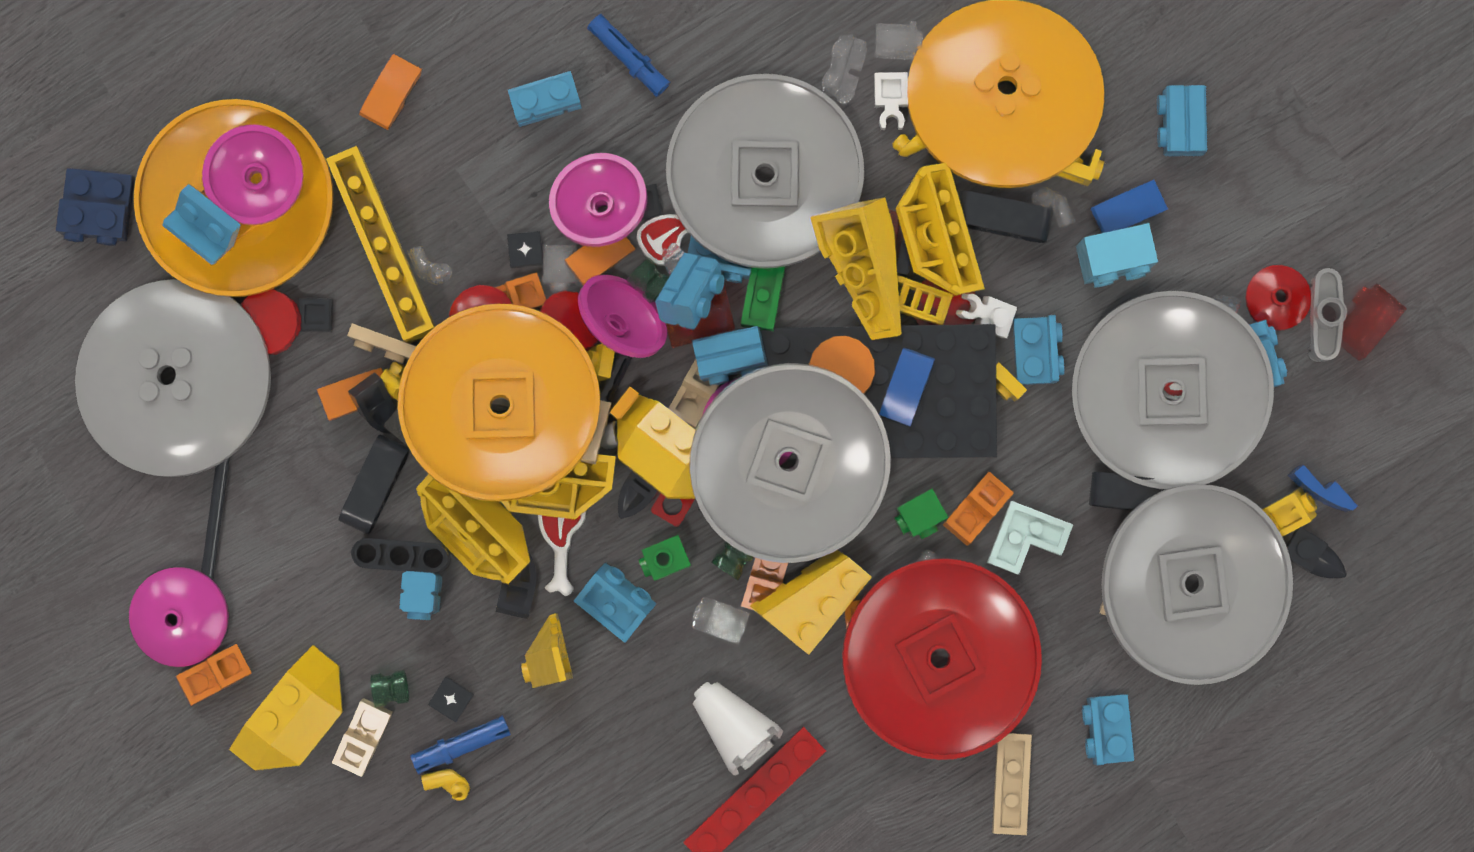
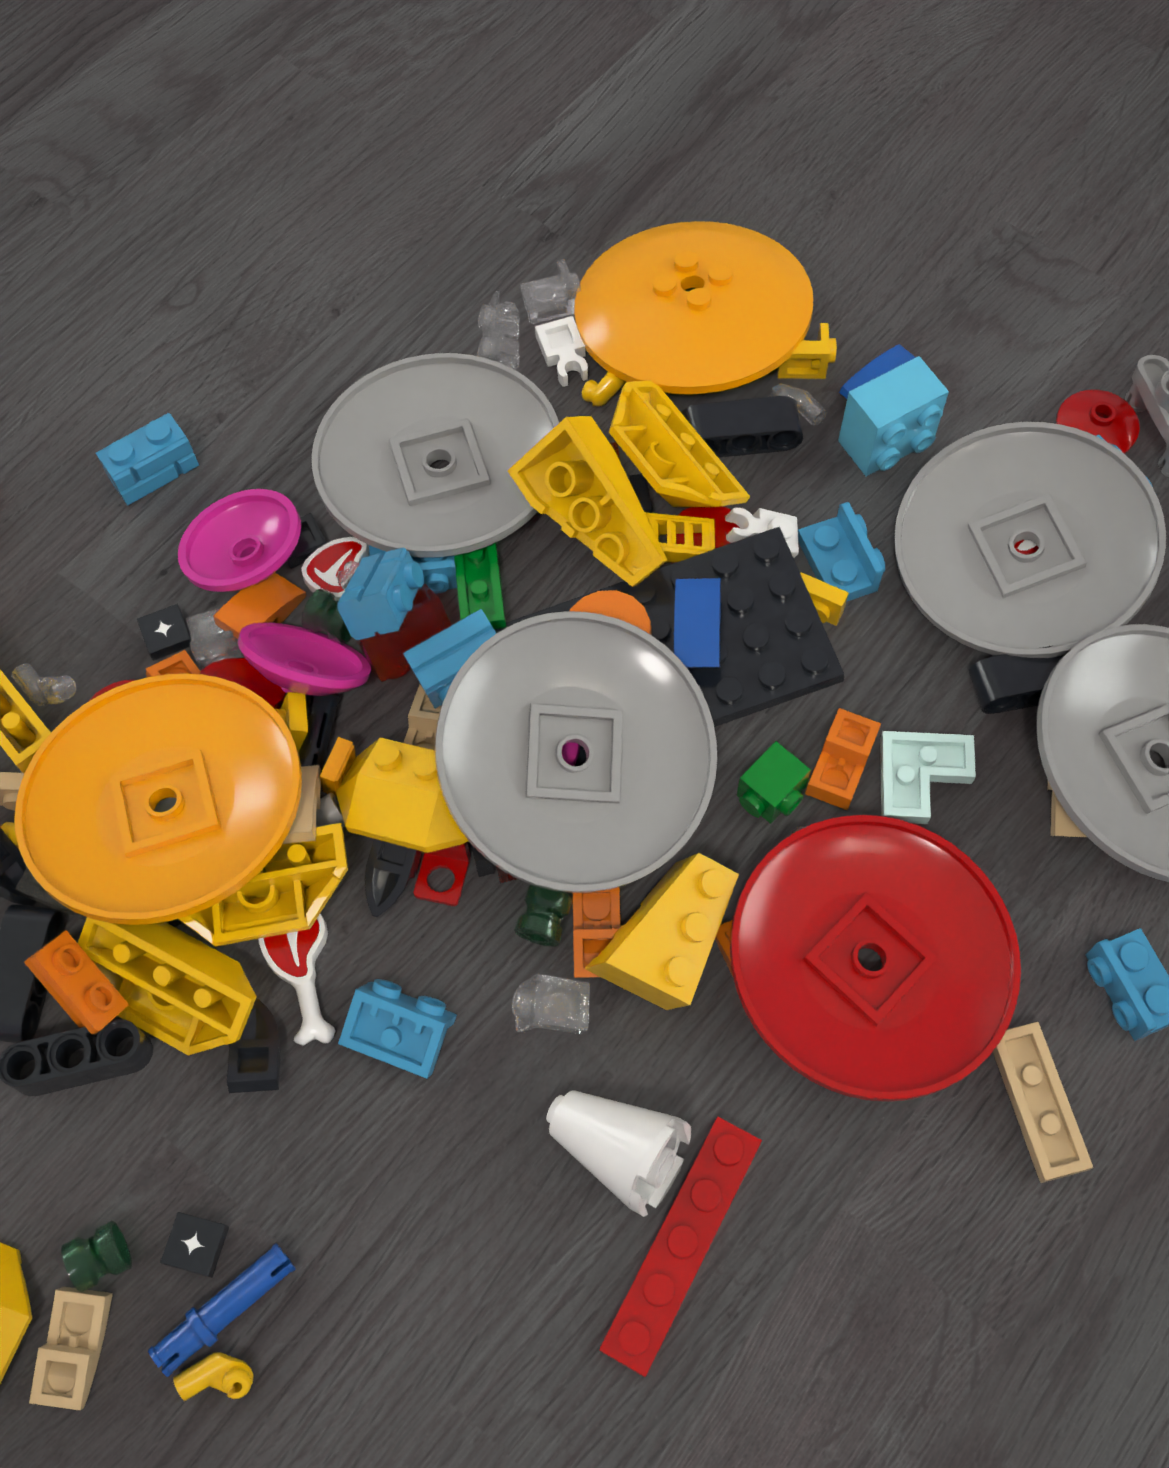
camera: 10 degrees left, 20 degrees down
(413, 511) = (76, 983): none -> orange bracket
(420, 594) = (110, 1095): dark azure brick -> none
(547, 656) = (319, 1133): yellow wedge -> none
(639, 65) = (253, 398): blue pin -> none
(664, 559) = (450, 945): green brick -> none
(1183, 120) = (906, 277): dark azure brick -> none

